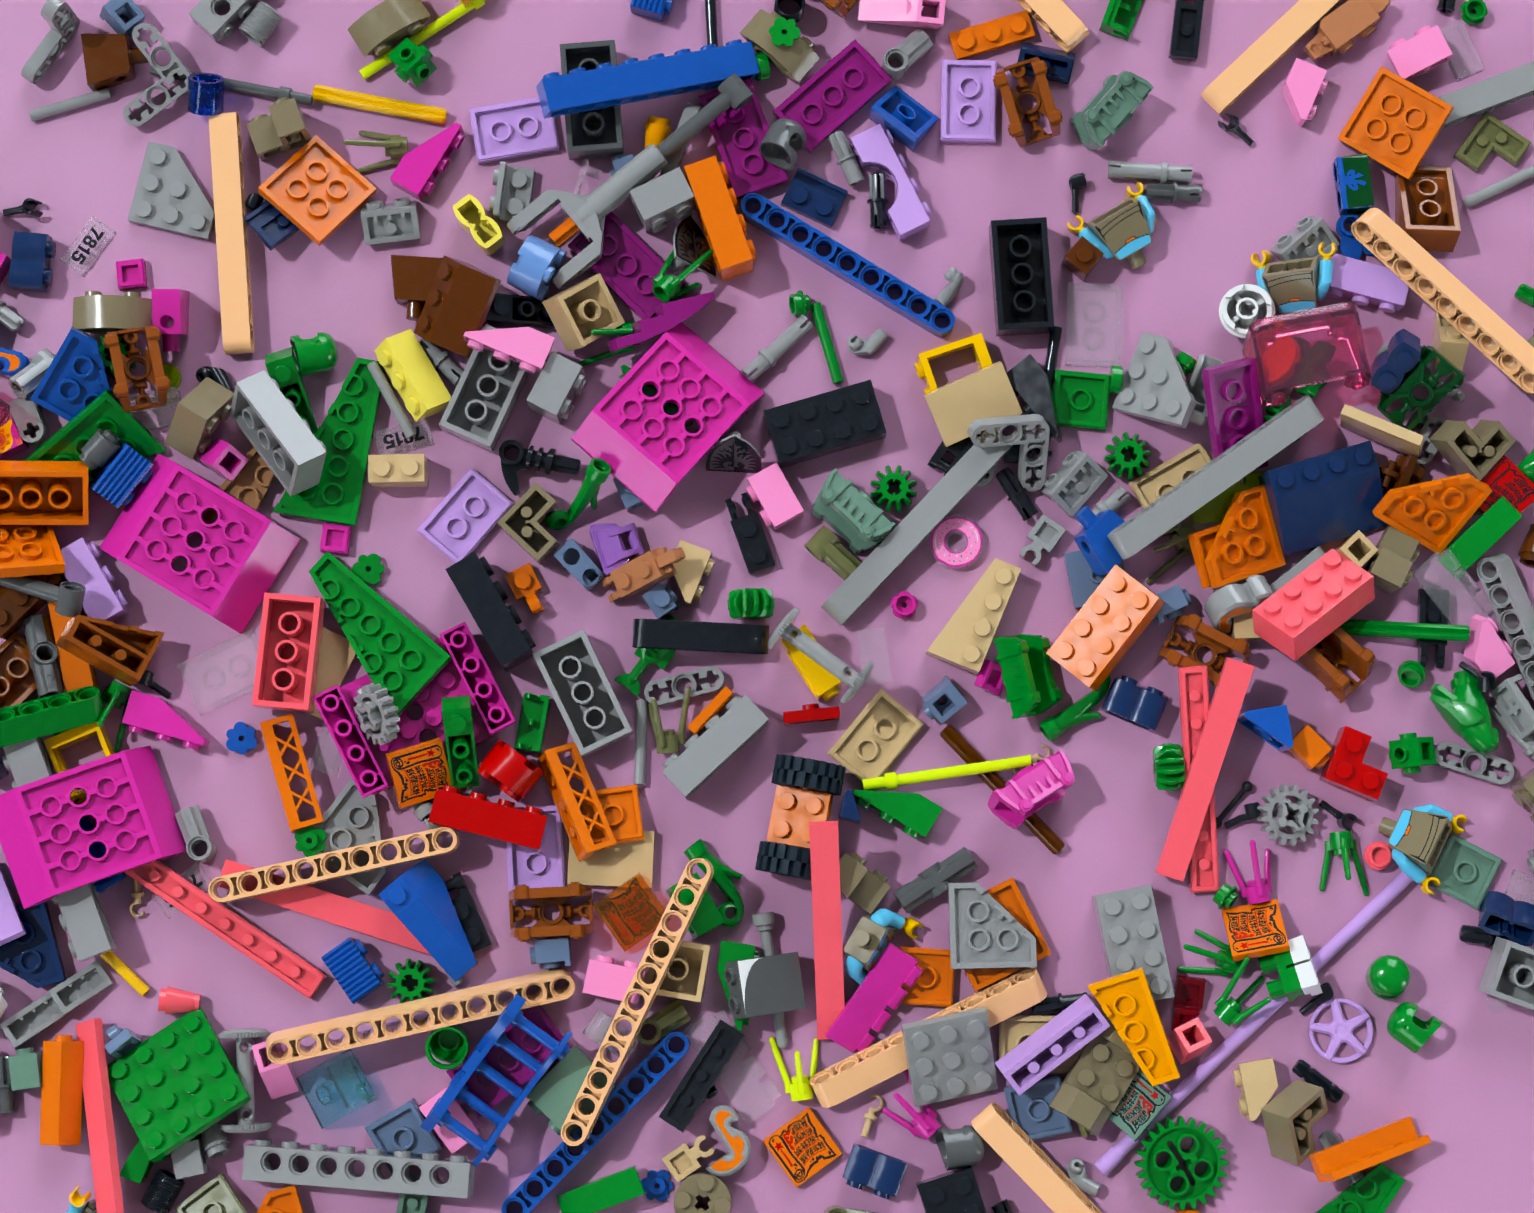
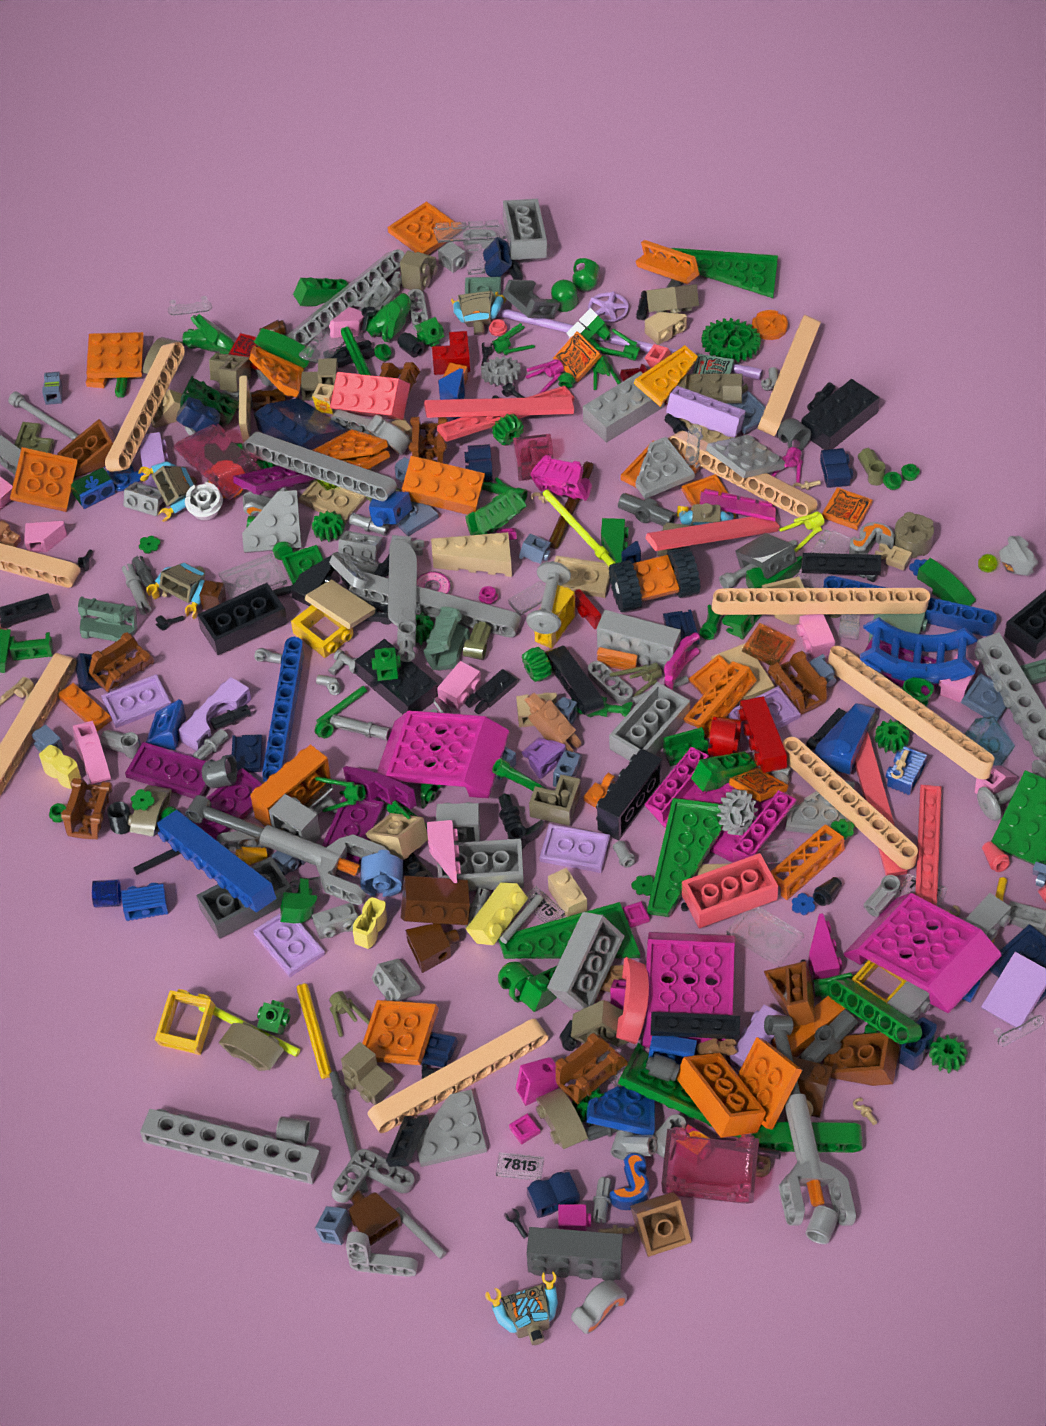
camera: 115 degrees left, 30 degrees down
(100, 522) = (714, 1046): none -> medium nougat plate
(128, 510) = (695, 1025): none -> black plate
(176, 136) = (406, 1140): none -> black plate
(201, 465) = (635, 1001): none -> coral slope
(205, 94) = (365, 1134): clear blue piece -> none
(240, 775) = (827, 891): none -> black cone
(351, 959) = (901, 764): none -> tan hand
(422, 165) = (351, 979): dark pink slope -> none
(422, 567) = (625, 857): none -> light grey pin
(543, 157) = (298, 906): none -> green brick
(671, 796) = (680, 659): none -> dark pink piece
(718, 817) = (682, 621): none -> dark blue plate
(827, 395) = (386, 663): none -> green brick
(896, 376) = (341, 658): none -> light grey piece
(941, 485) = (403, 596): none -> light grey piece
(998, 992) = (693, 443): none -> clear piece
(1112, 769) = (529, 452): none -> clear pink brick
(1221, 212) = (149, 544): none -> green plant
(1397, 918) = (522, 297): none -> dark grey panel
(1404, 718) = (410, 344): none -> black brick

